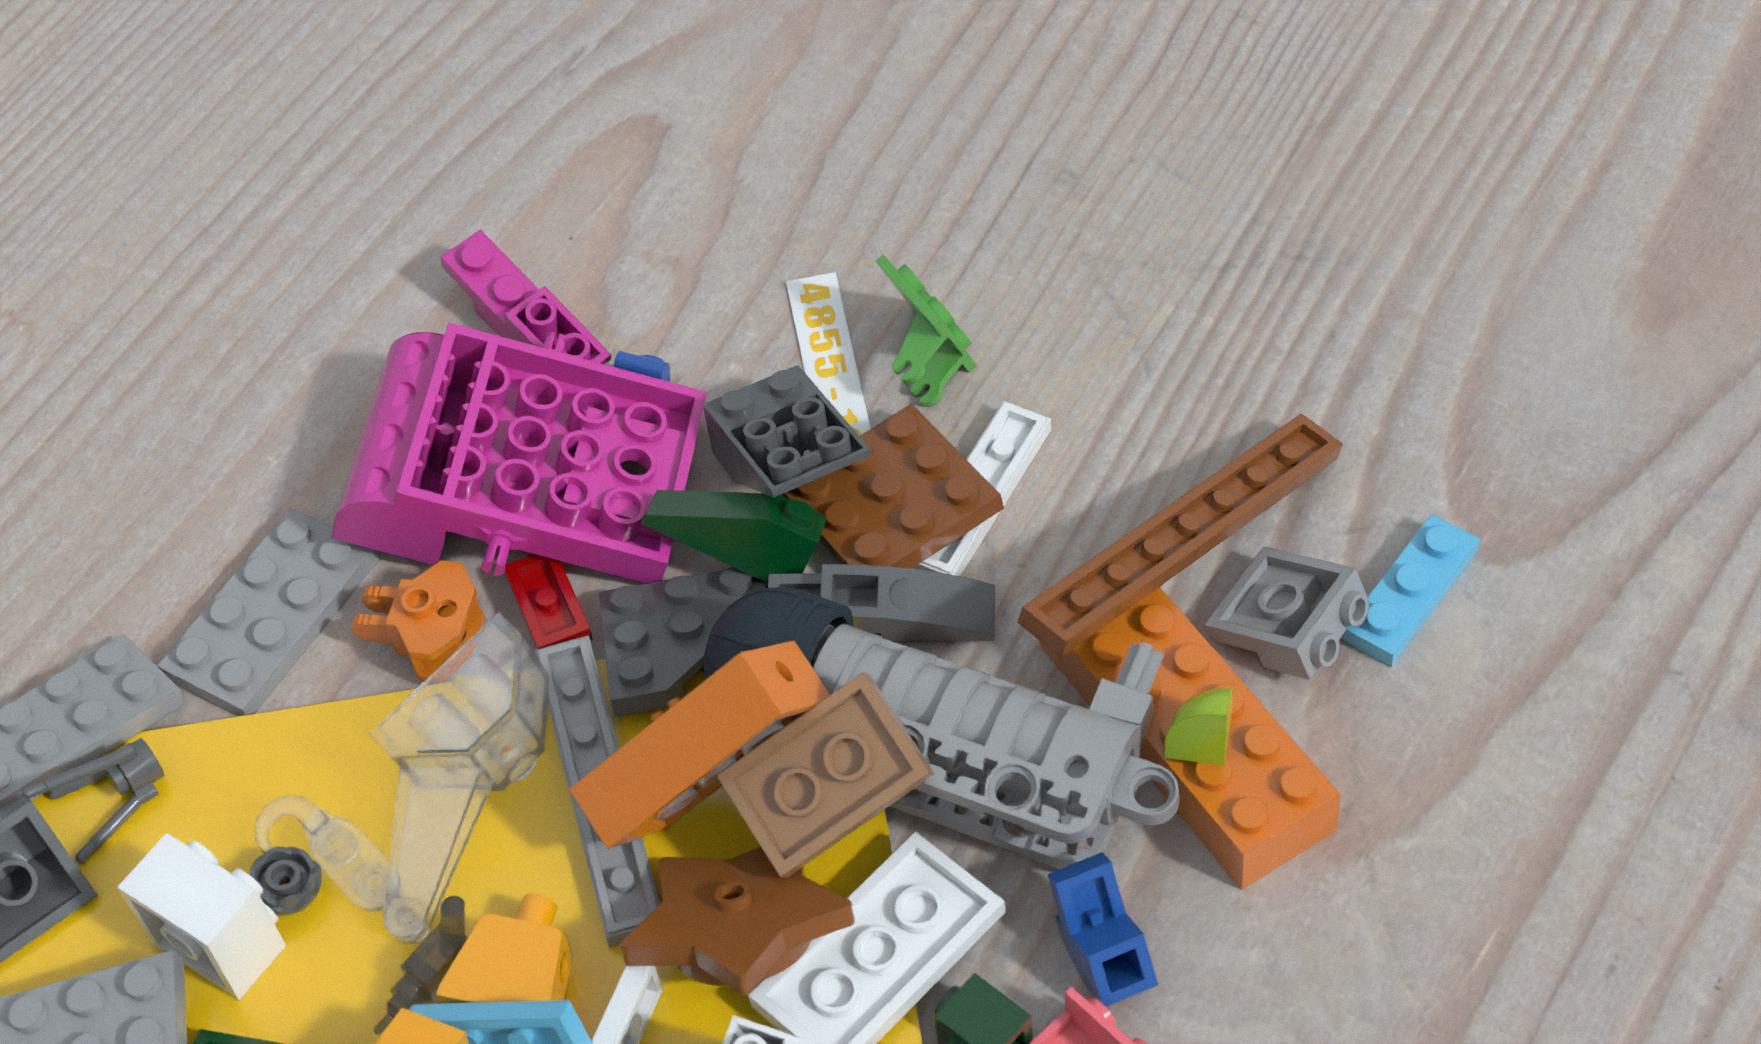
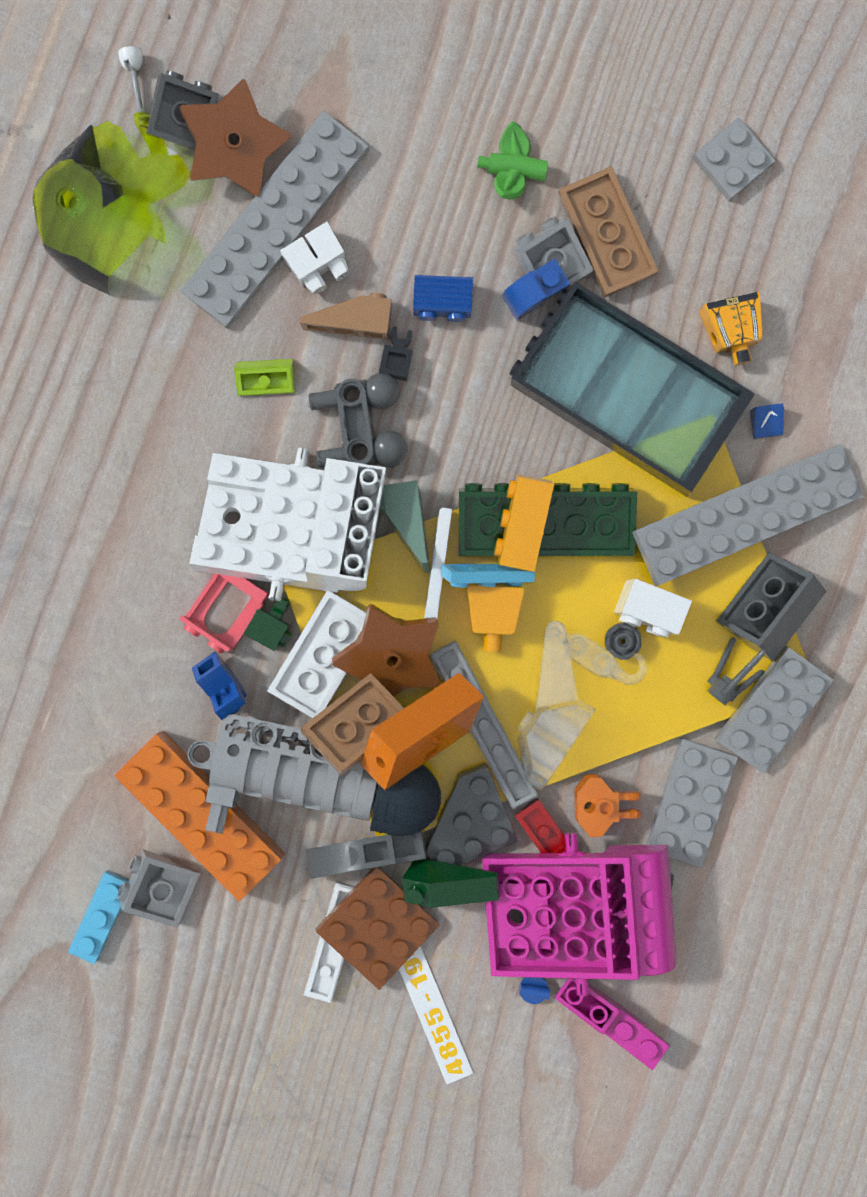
camera: 165 degrees right, 35 degrees up
(429, 962) = (536, 607): clear smoke piece -> none
(780, 433) = (438, 947): dark grey slope -> none
(934, 341) = (372, 1032): bright green plate -> none
(1178, 535) = (211, 915): dark orange plate -> none
(1201, 728) = (178, 793): lime brick -> none

